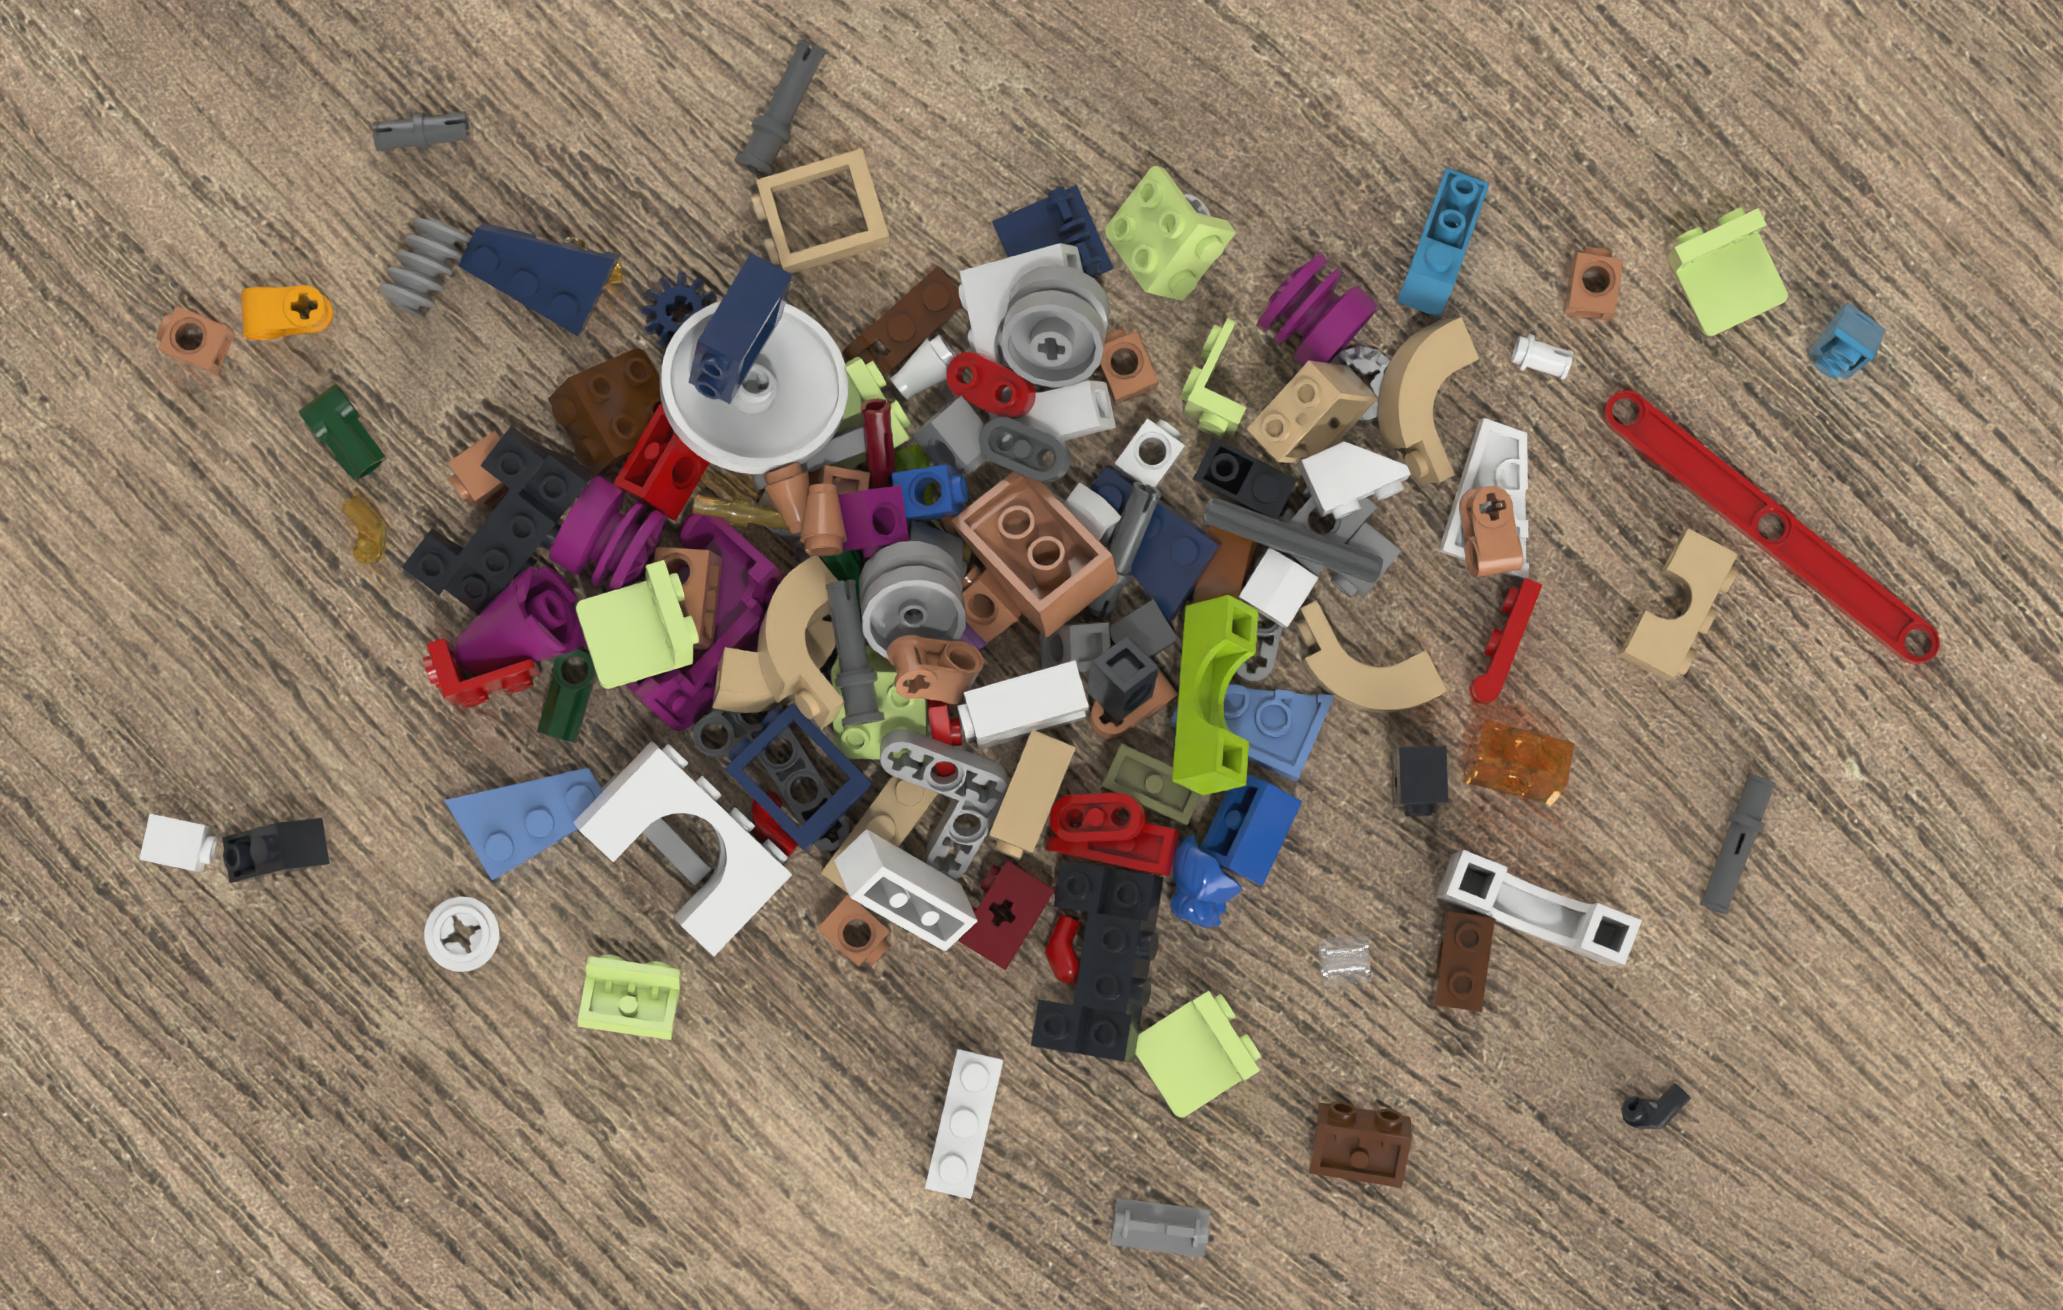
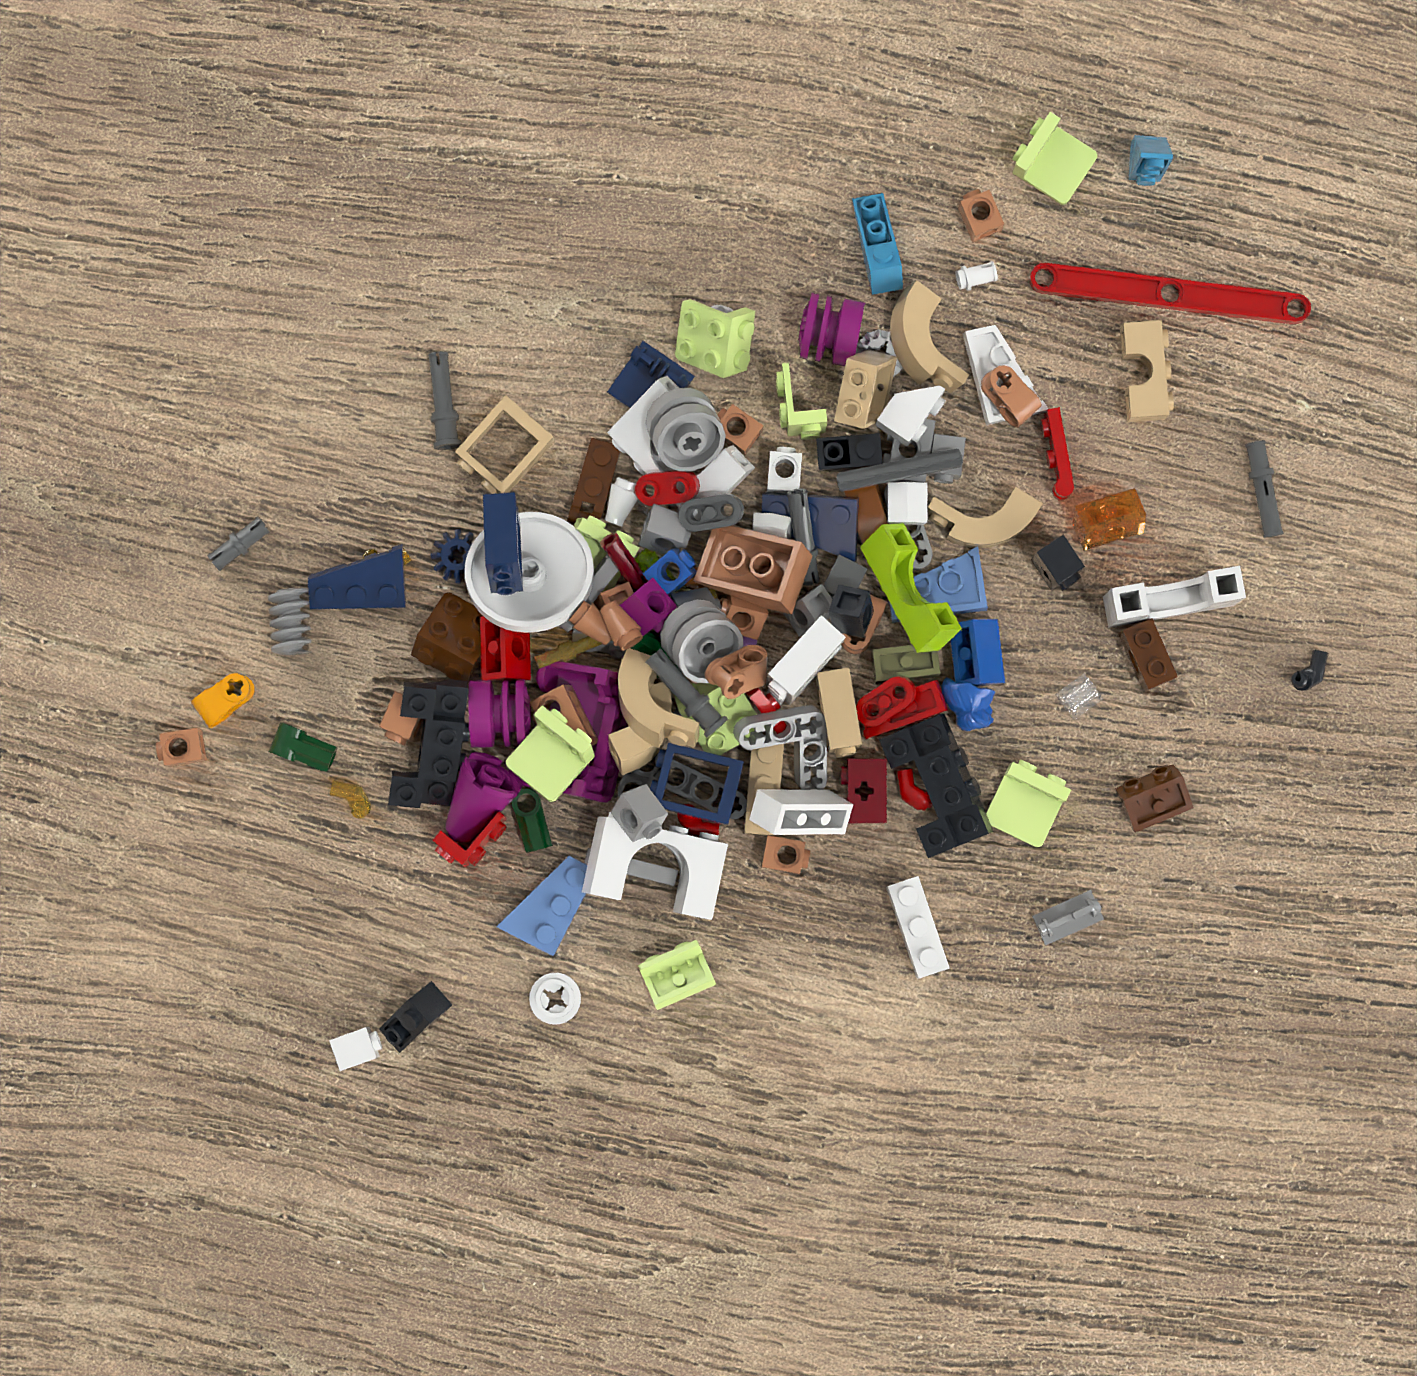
camera: 25 degrees left, 0 degrees up
(702, 768) = (639, 813): none -> light grey brick

